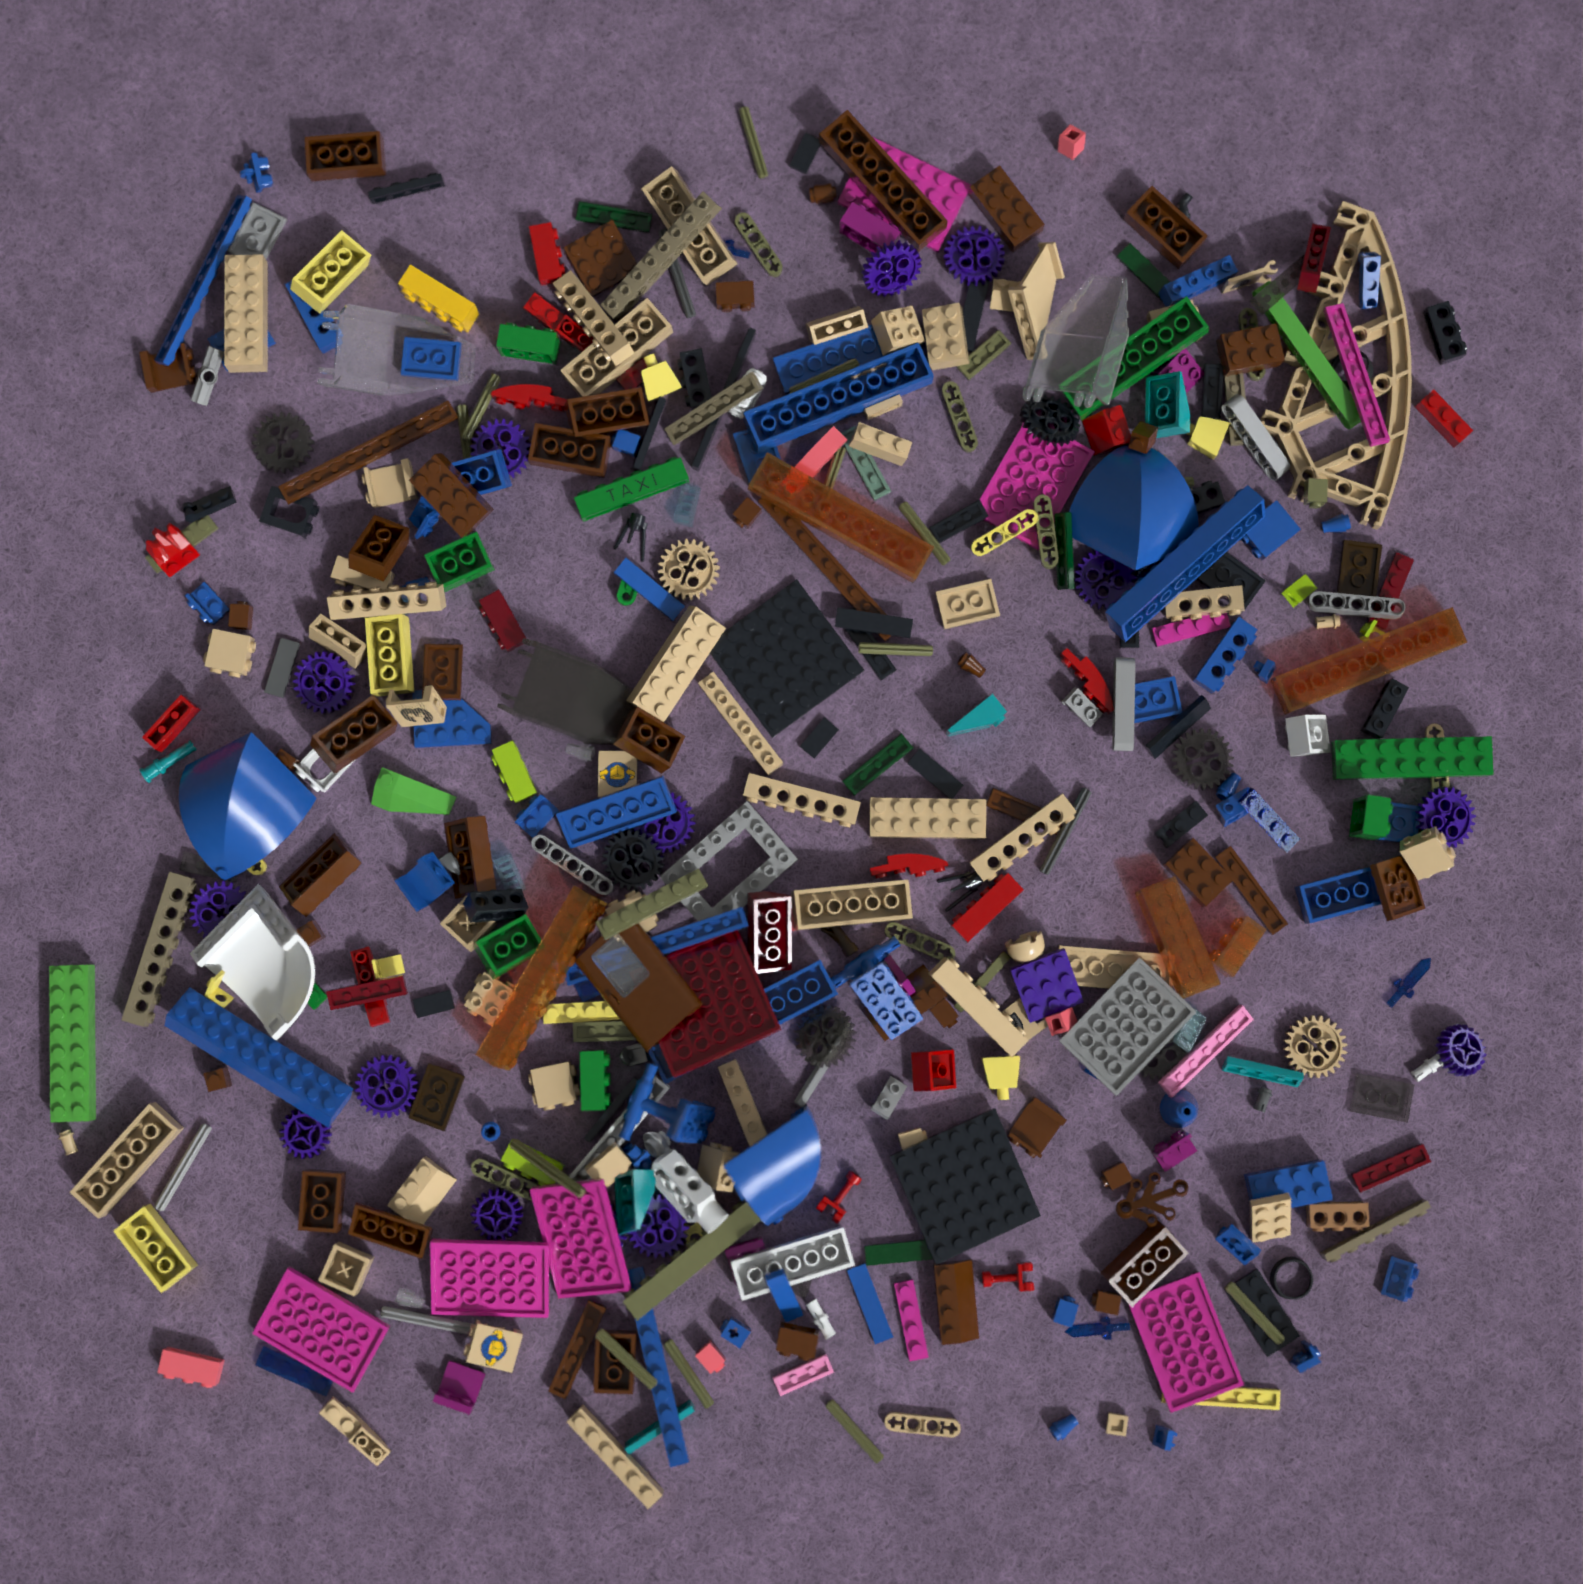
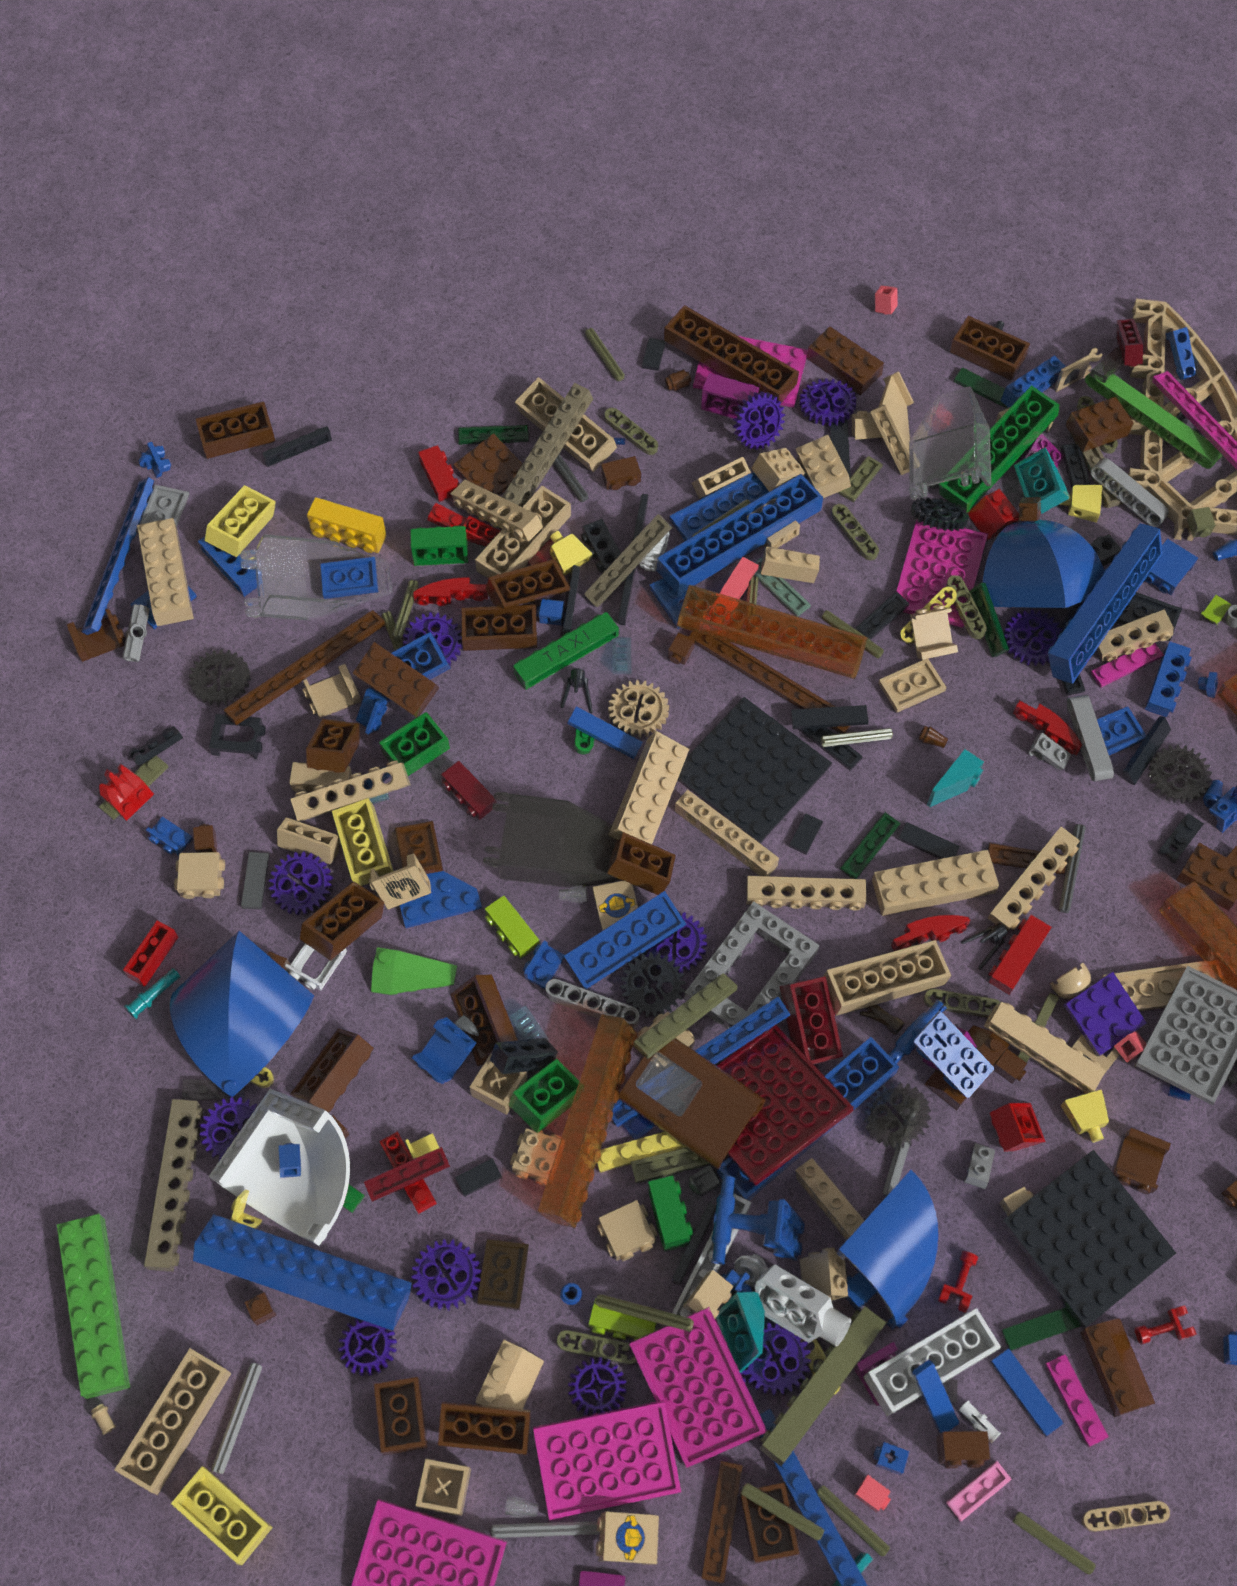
camera: 15 degrees left, 20 degrees down
(265, 952) = (289, 1160): none -> blue brick
(1003, 555) = (932, 632): none -> tan panel

